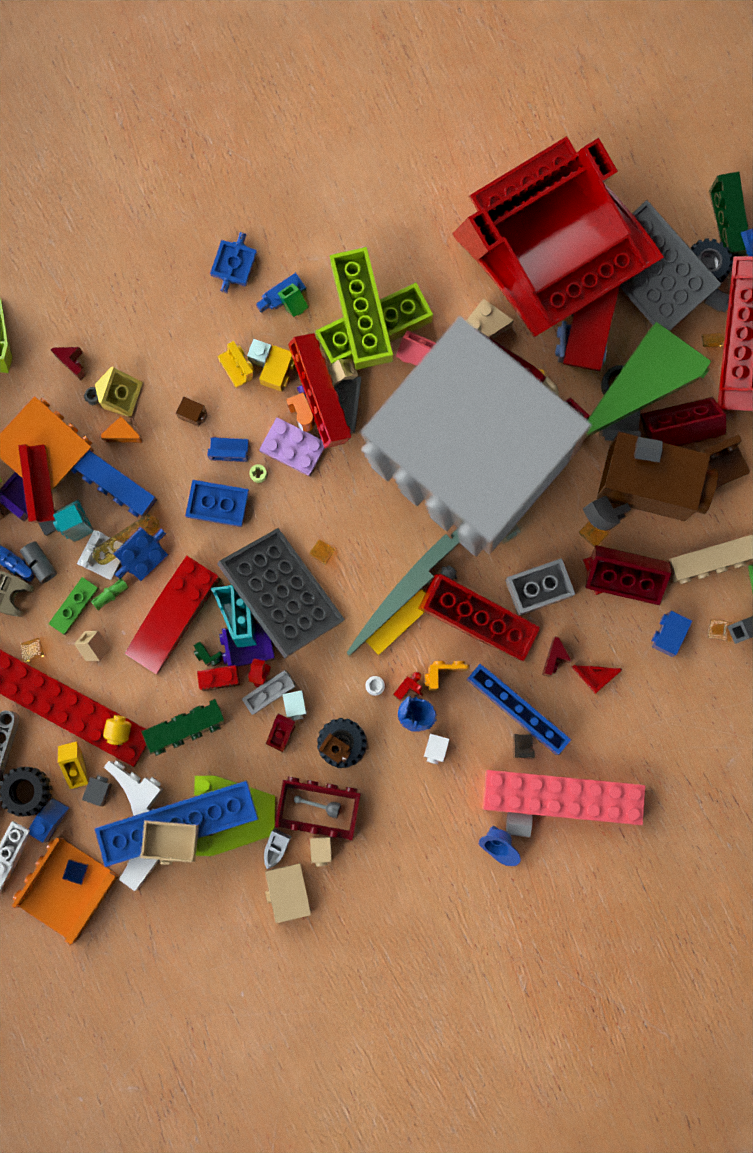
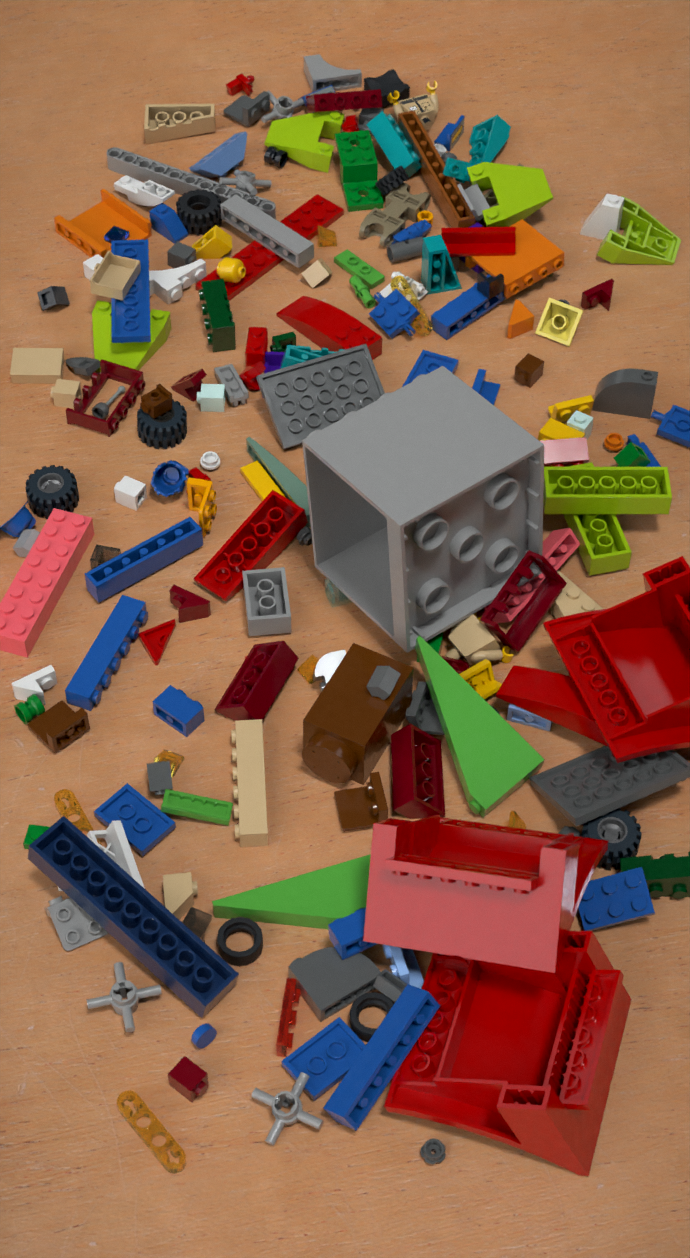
camera: 100 degrees right, 30 degrees down
(47, 709) = (267, 231): none -> light grey brick
(96, 461) = (490, 286): none -> black panel
(186, 908) = (53, 297): none -> black panel
(212, 314) = (626, 393): none -> dark grey brick
(266, 322) = (614, 442): none -> orange plate
(455, 821) = (52, 489): none -> black wheel
(584, 391) = (482, 679): none -> yellow bracket
(624, 713) = (106, 653): none -> blue brick
(681, 768) = (35, 684): none -> white slope
(702, 761) = (29, 708): none -> green wheel
(712, 731) = (59, 726): none -> reddish brown bracket

